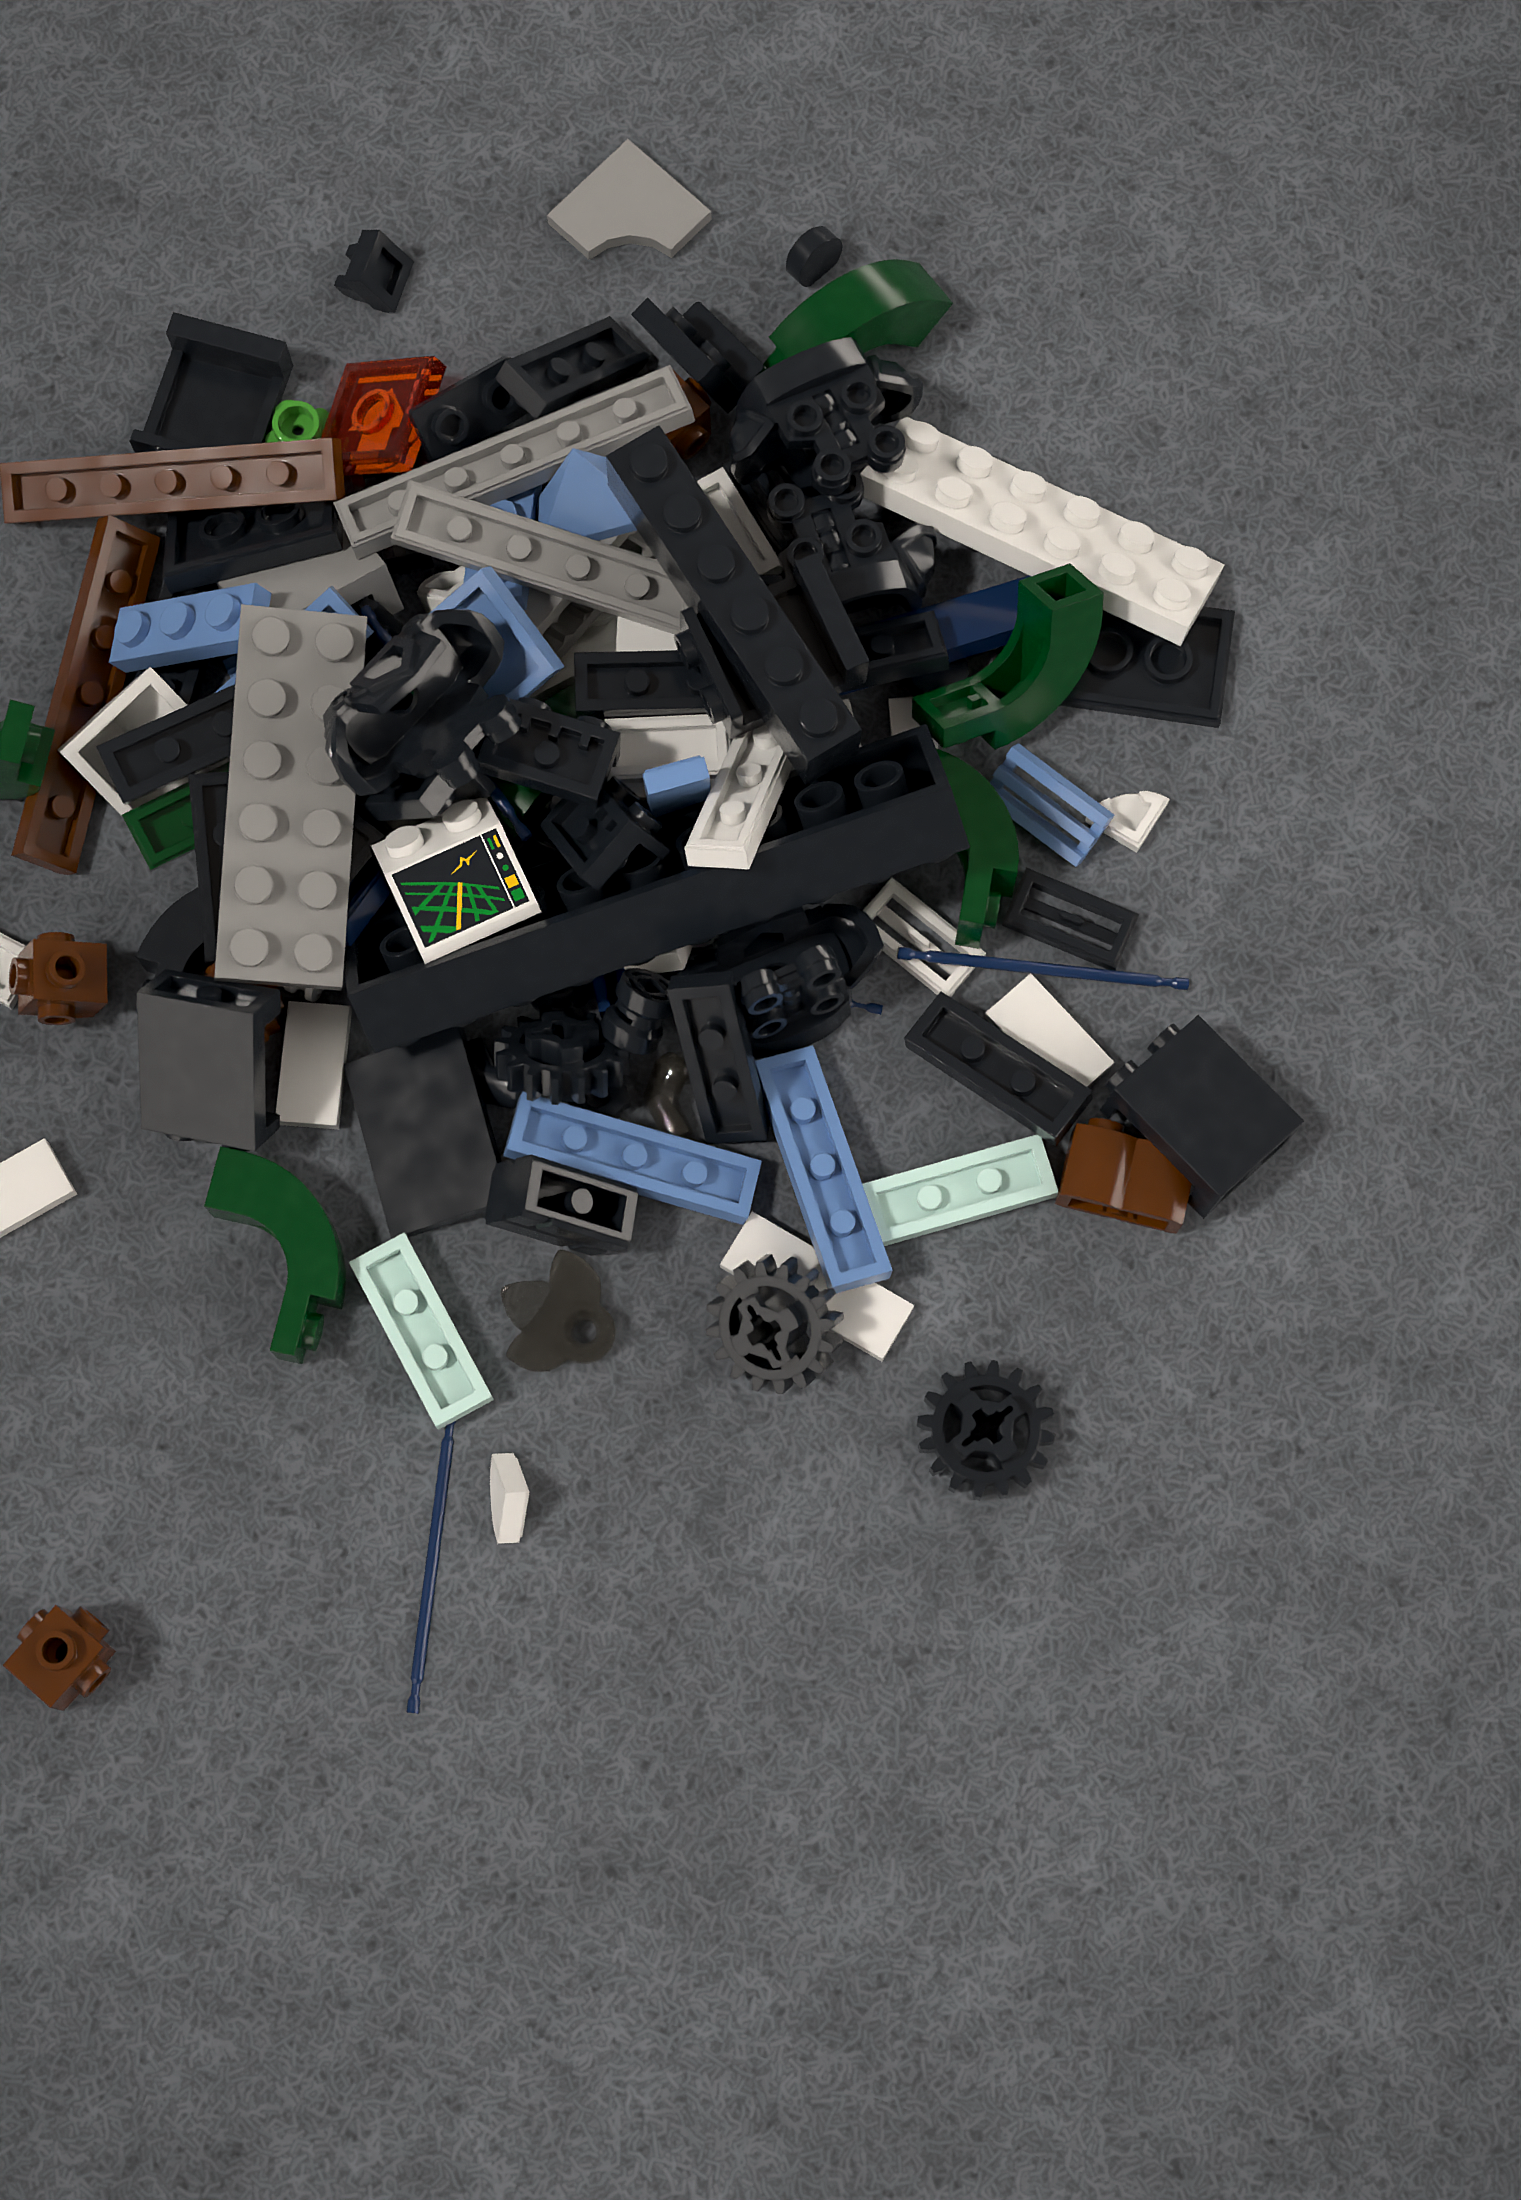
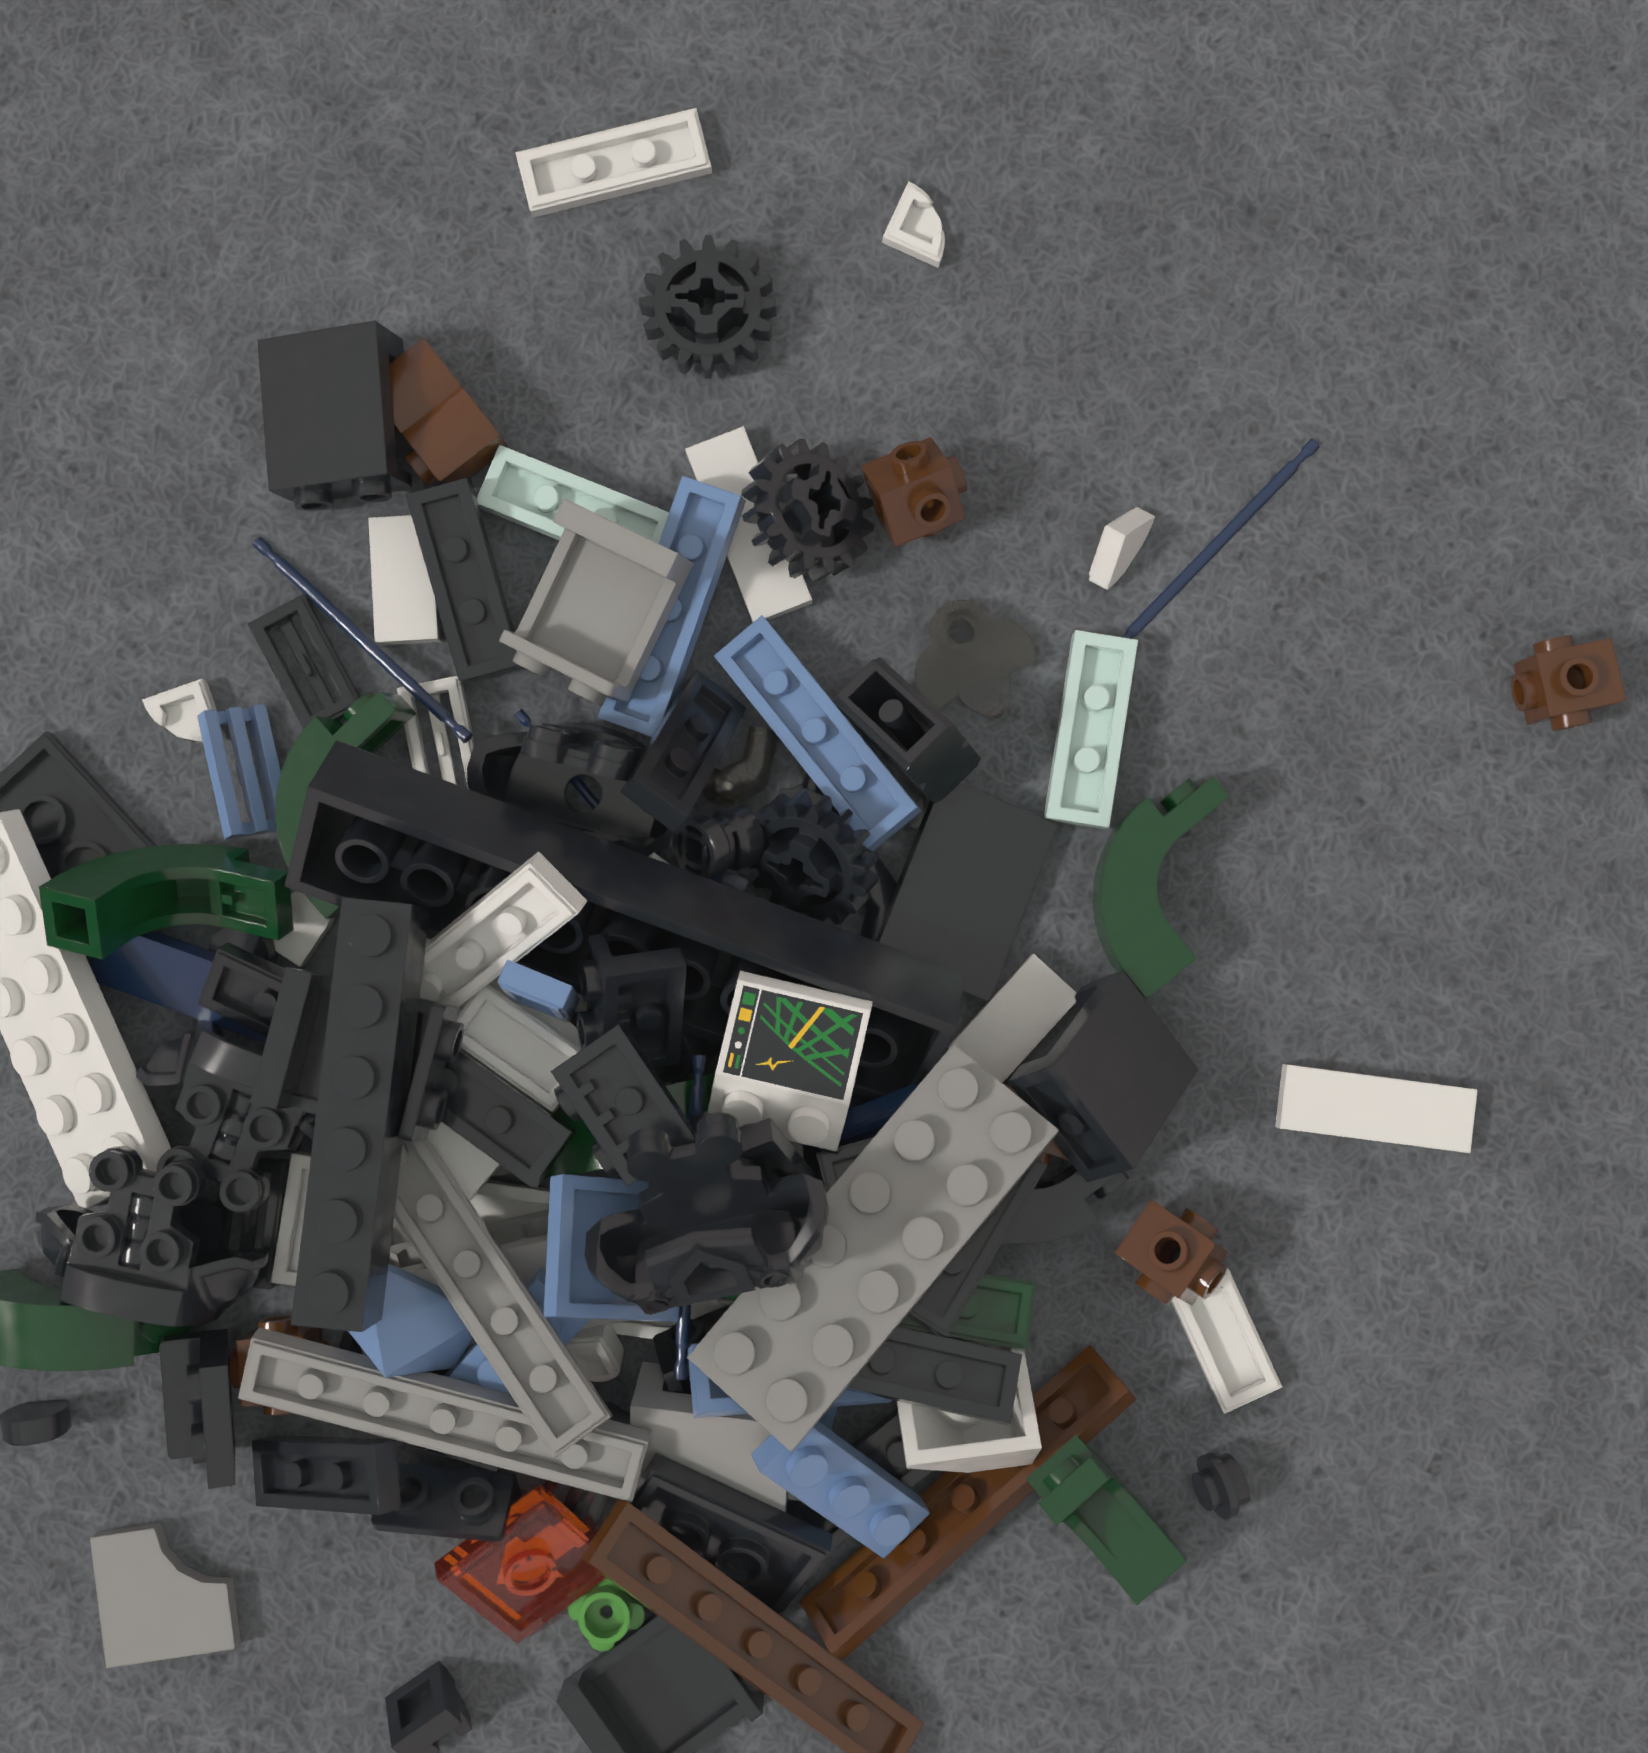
camera: 145 degrees left, 10 degrees up
(703, 1406) = (915, 490): none -> reddish brown brick
(874, 1635) = (916, 227): none -> white tile
(876, 1119) = (598, 605): none -> light grey panel
(1159, 1495) = (614, 162): none -> white tile

